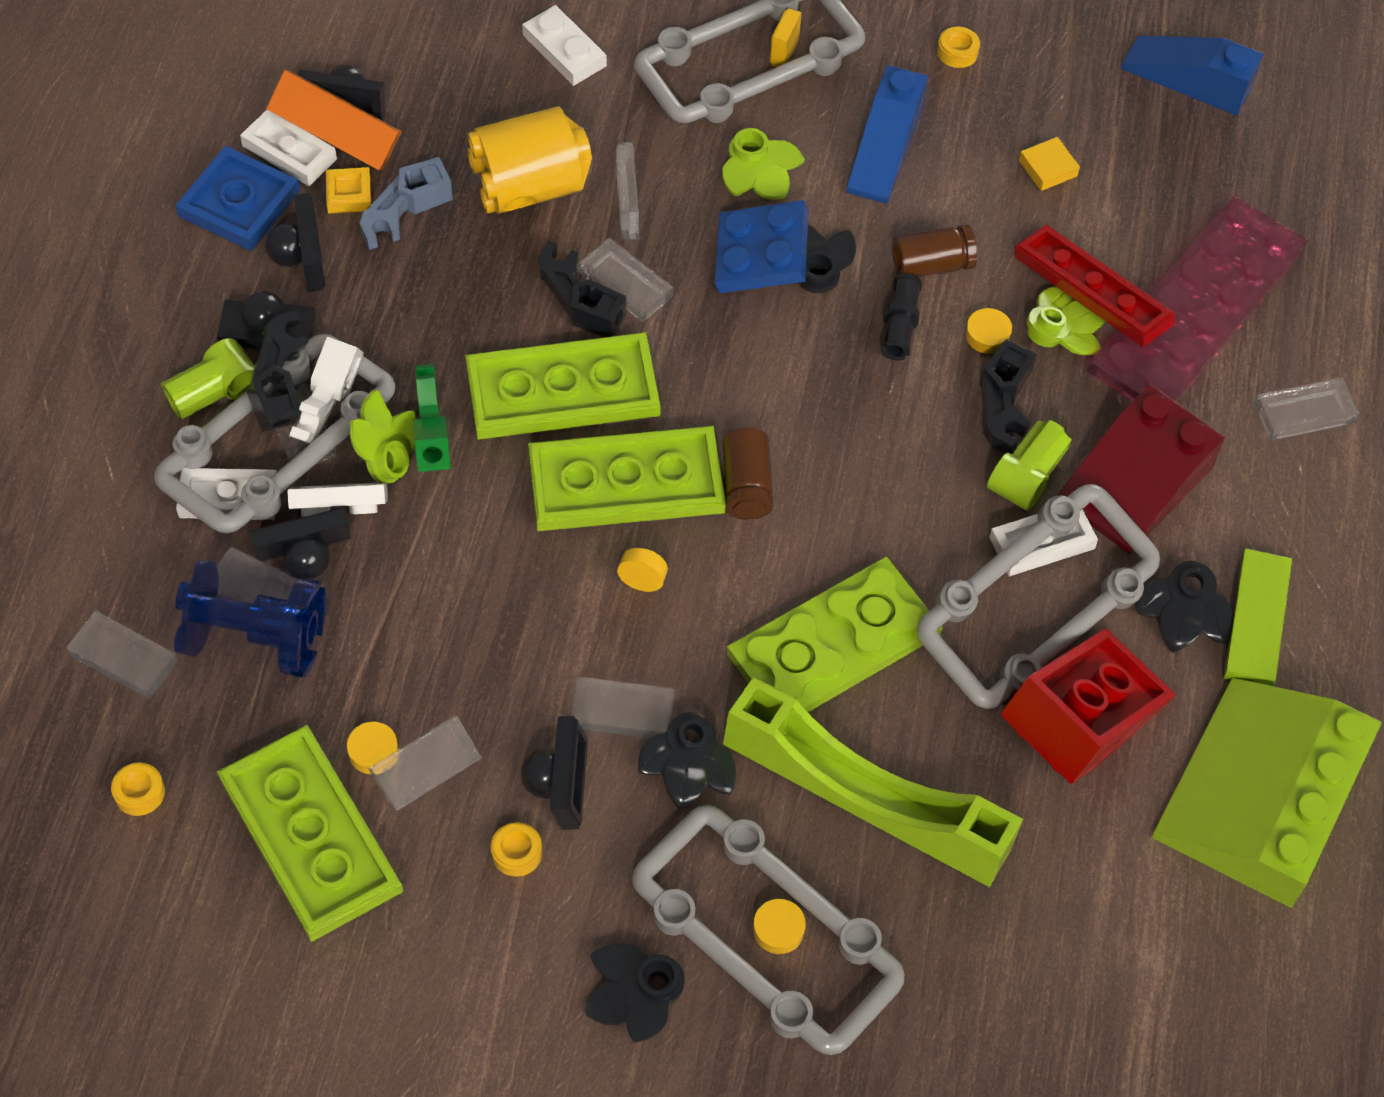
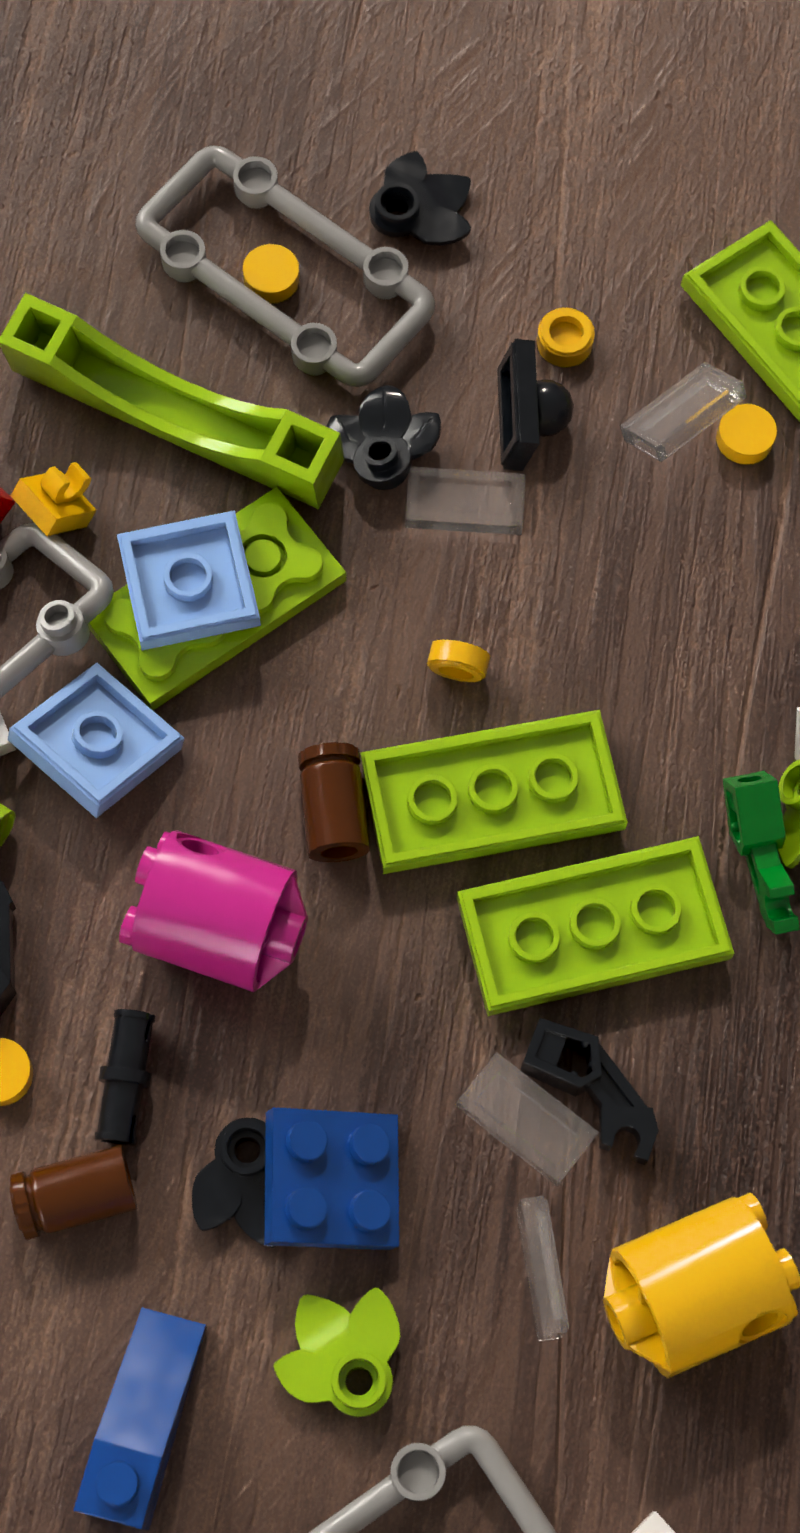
camera: 175 degrees right, 10 degrees up
(838, 390) = (215, 911): none -> dark pink cylinder
(856, 632) = (188, 580): none -> light blue tile
(927, 530) = (95, 739): none -> light blue tile
(969, 715) = (56, 499): none -> yellow tile

